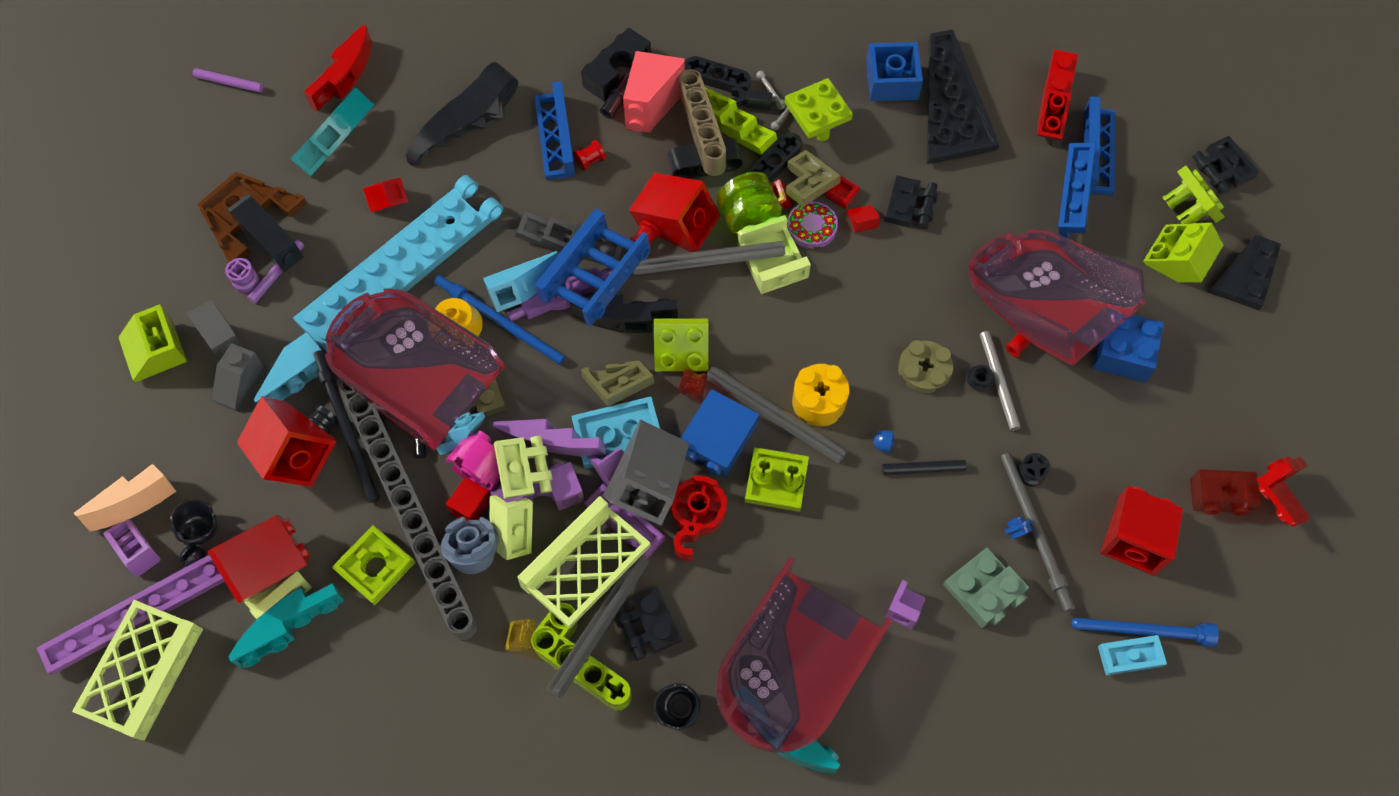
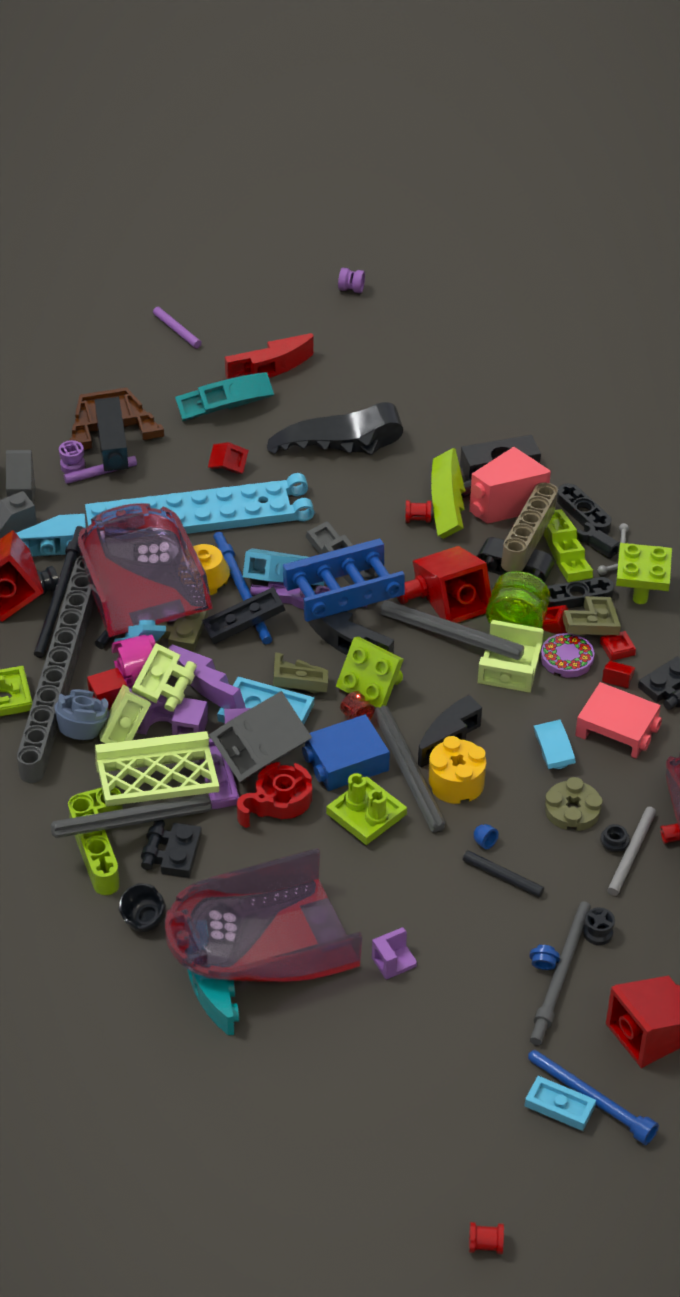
camera: 35 degrees right, 20 degrees down
(520, 635) = (63, 797): clear yellow tile -> none
(529, 350) = (243, 615): none -> black plate
(563, 130) = (406, 489): blue fence -> none
(601, 124) = (446, 493): none -> lime slope
(782, 357) = (455, 721): none -> black slope
(872, 318) = (554, 744): none -> medium azure slope
(901, 263) = (619, 717): none -> coral panel
(986, 588) = (476, 985): sand green plate -> none

